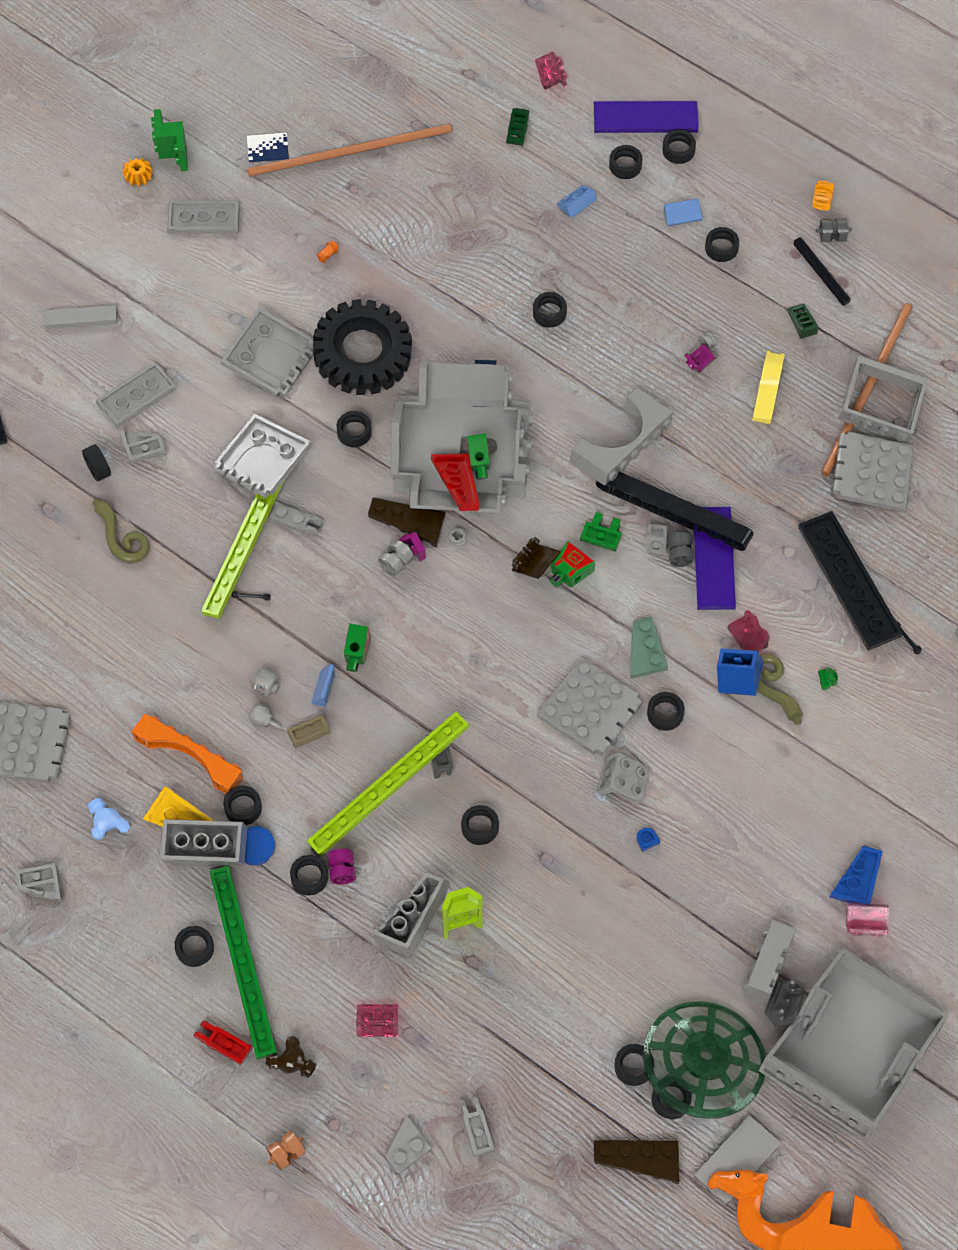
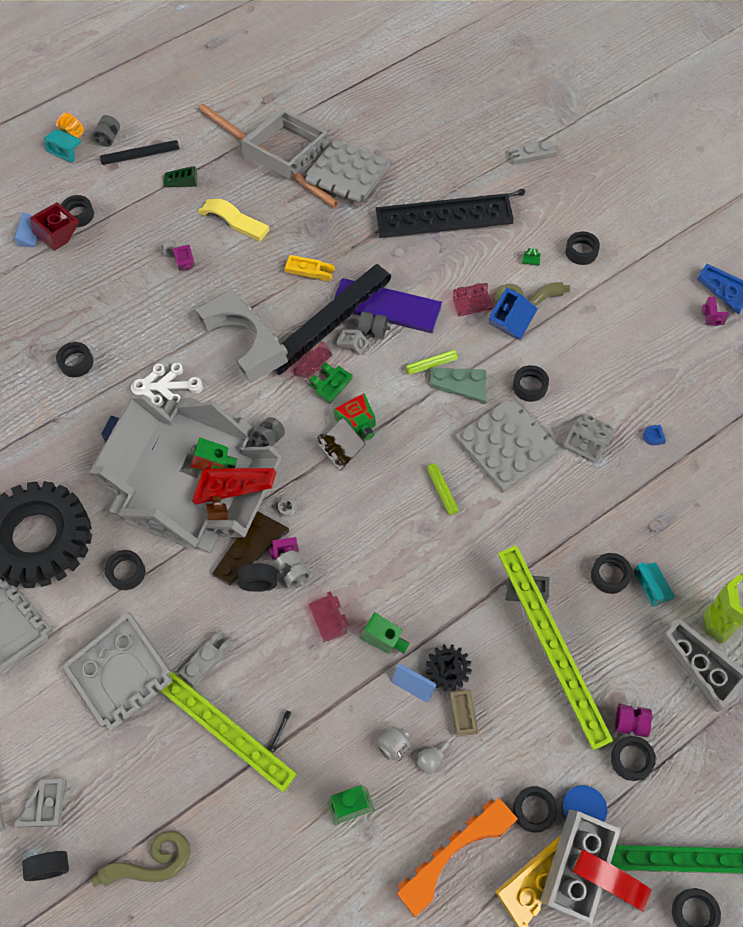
camera: 70 degrees left, 0 degrees up
(195, 869) = (612, 880): none -> red slope
(203, 659) = (350, 804): none -> green torso
(344, 701) = (455, 672): none -> black gear
(362, 602) = (328, 618): none -> clear pink bracket
(377, 531) = (257, 577): none -> black tyre
(428, 477) = (216, 510): none -> reddish brown tile
(482, 865) = (653, 583): none -> teal panel
(520, 661) = (442, 489): none -> lime axle
(522, 494) = (267, 433): none -> dark grey wheel
(548, 393) = (164, 385): none -> white plant
(617, 508) = (313, 361): none -> clear pink bracket
(659, 616) = (431, 362): none -> lime axle
(692, 231) = (54, 225): none -> dark red slope
(731, 472) = (309, 268): none -> yellow hinge
(800, 197) = (61, 144): none -> teal panel
(816, 866) = (712, 316): none -> magenta bracket
(864, 712) = (586, 238): none -> black tyre

